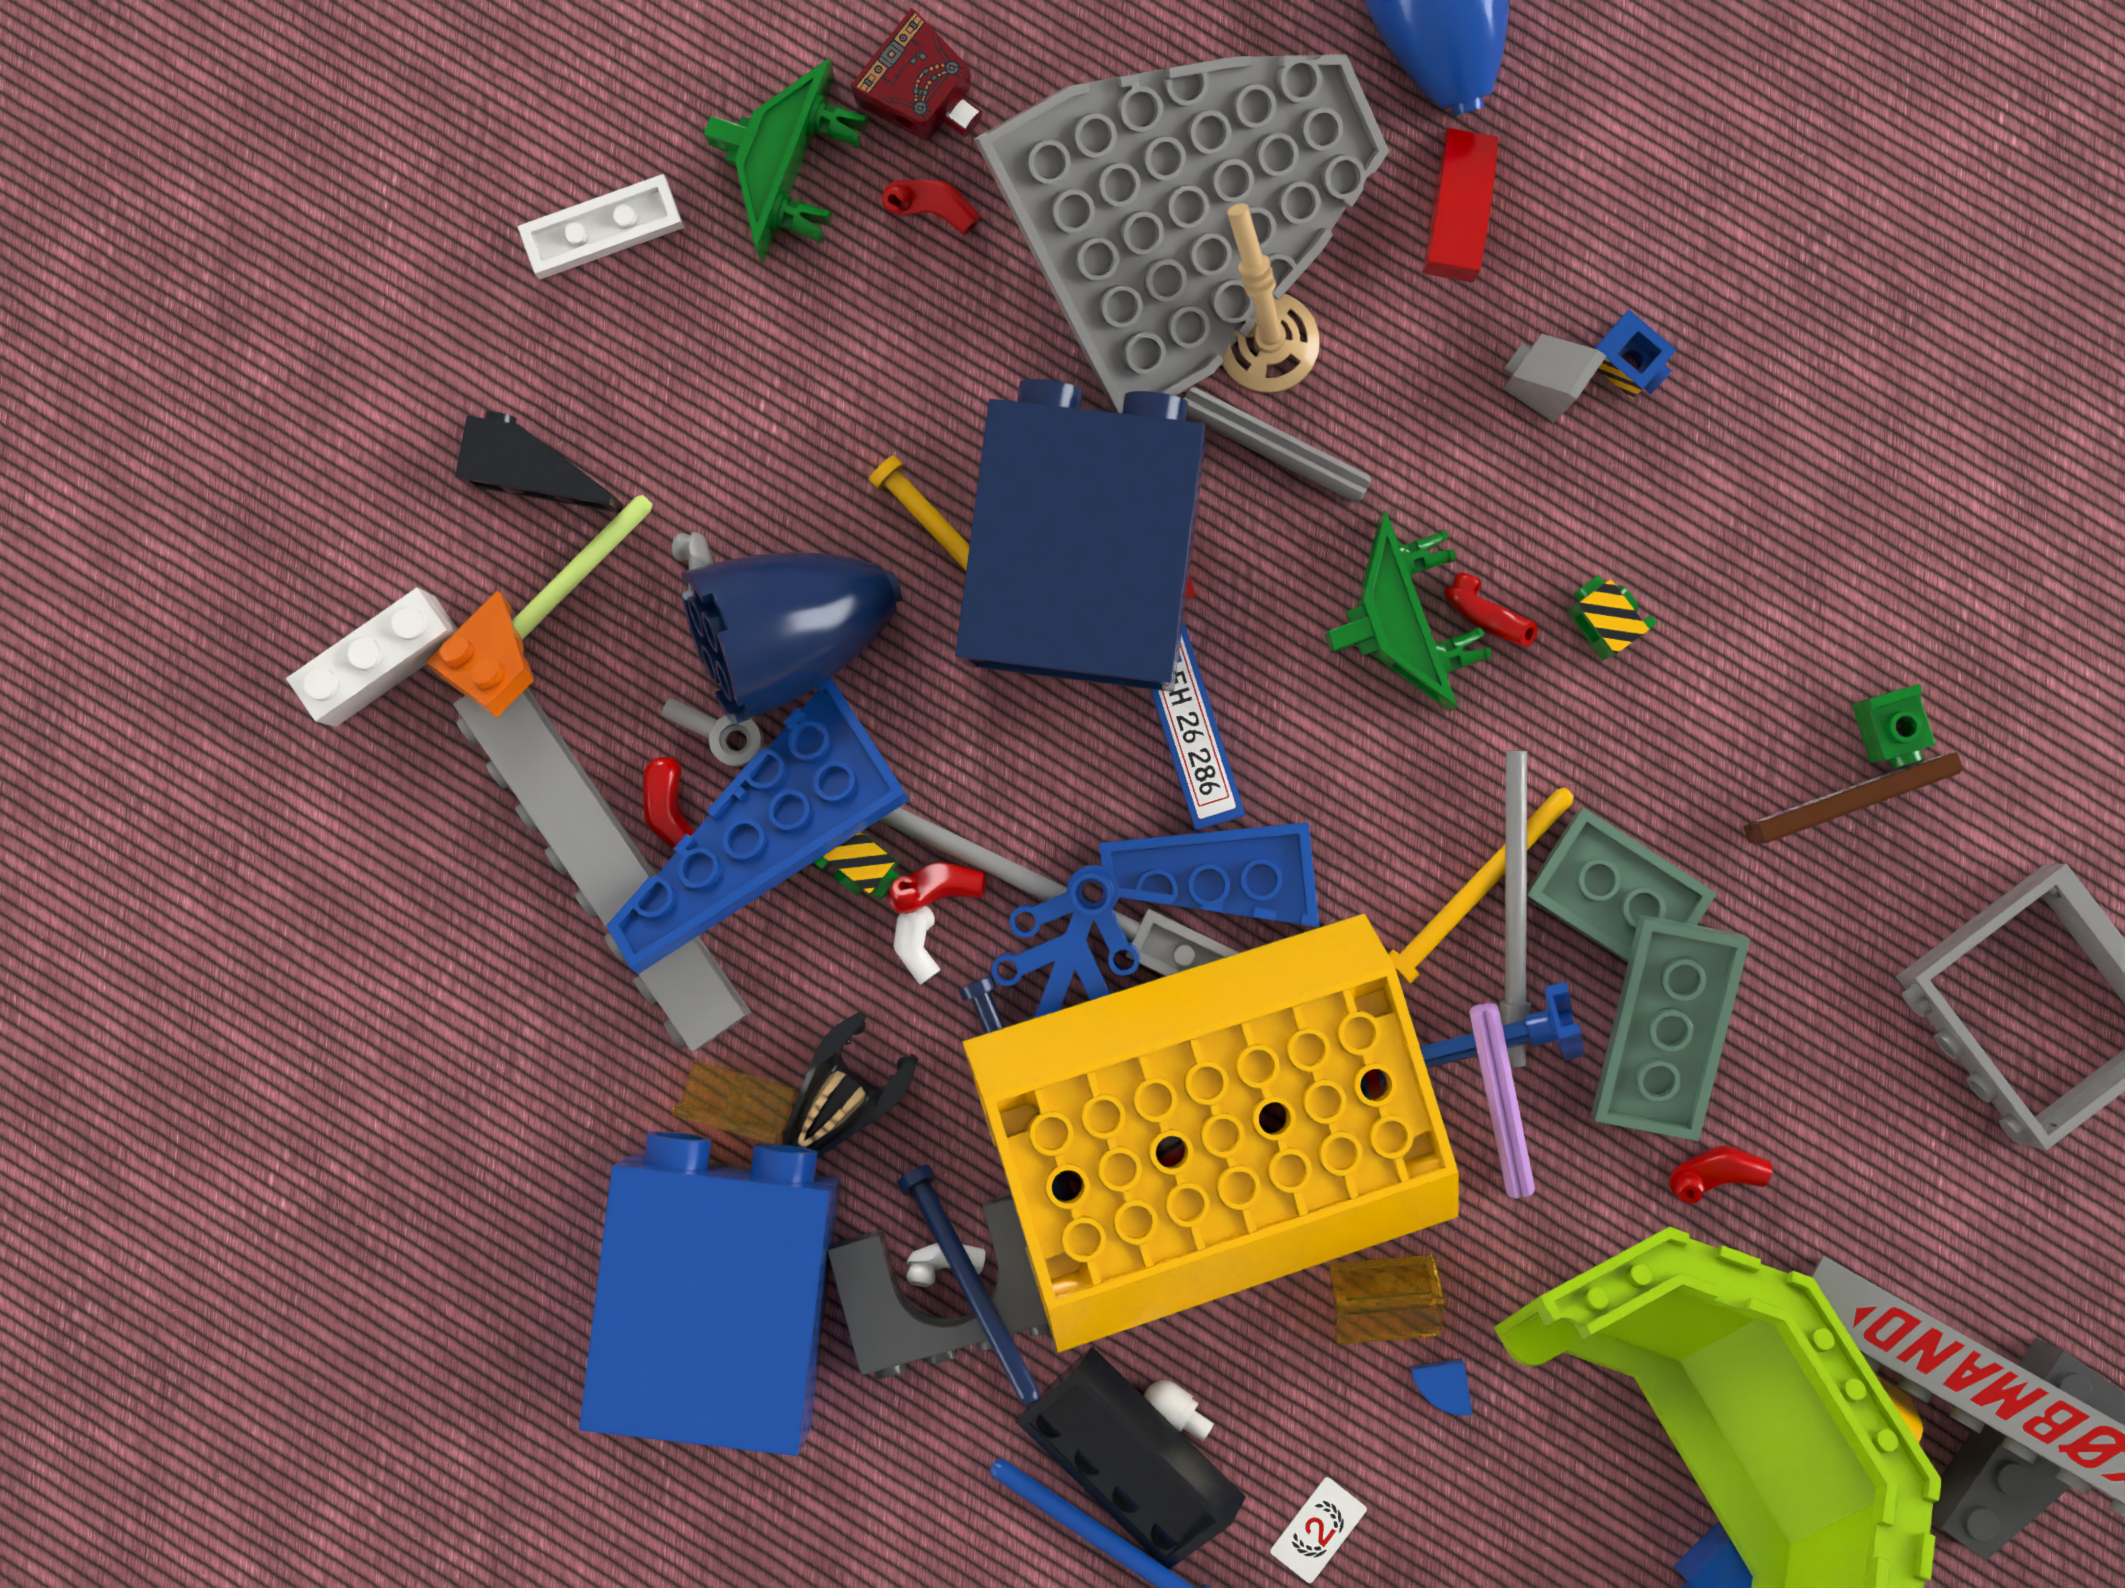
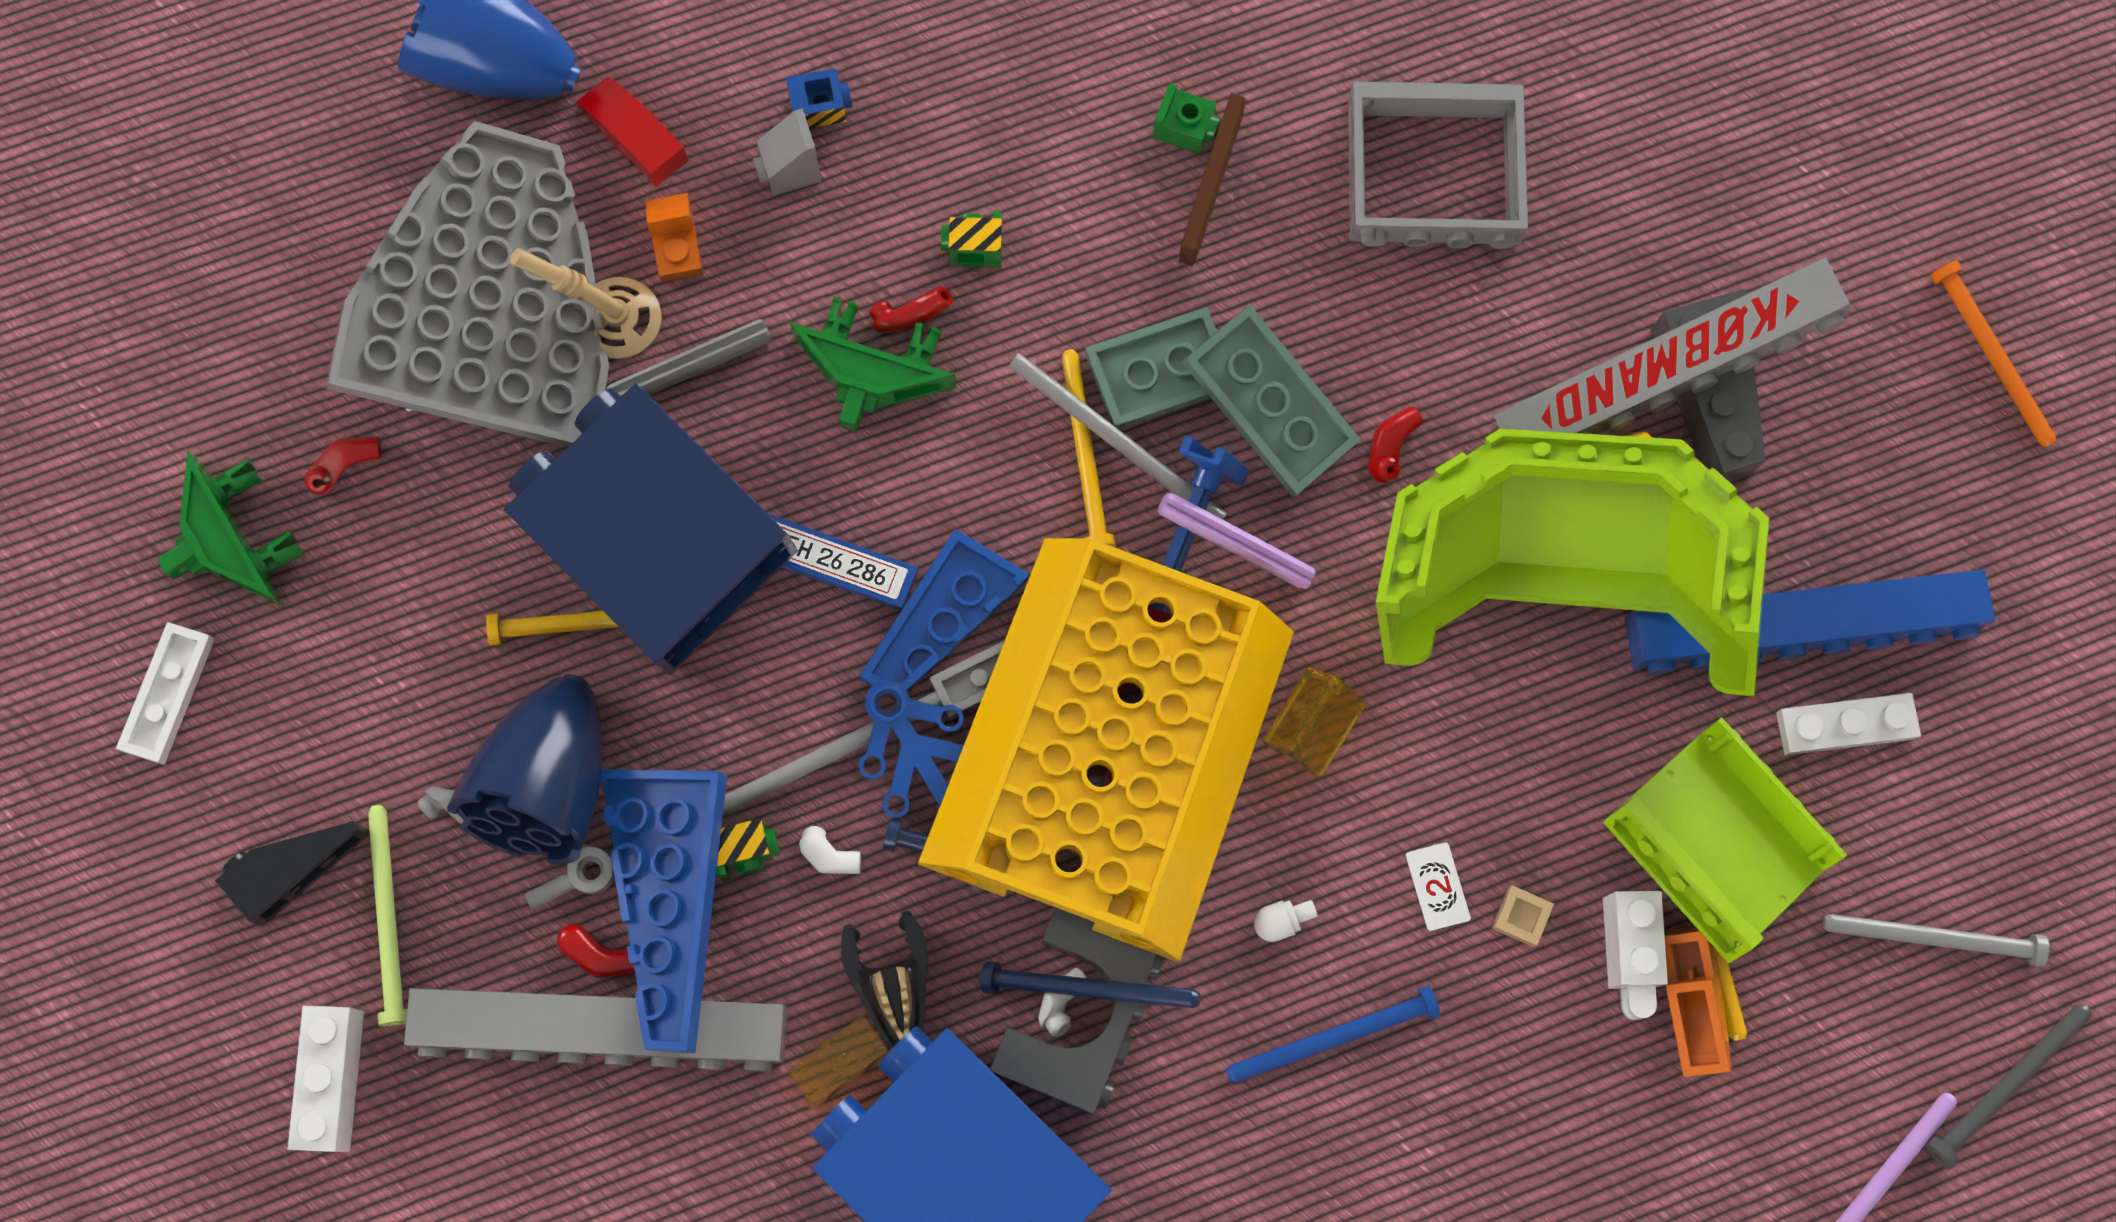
camera: 60 degrees left, 10 degrees down
(485, 658) = (391, 998): orange wing -> none
(917, 82) = (254, 408): torso -> none
(934, 883) = (798, 808): red arm -> none
(1131, 1460) = (1293, 975): black slope -> none
(1387, 329) = (674, 237): none -> orange slope
(1444, 1385) = (1401, 726): blue tile -> none

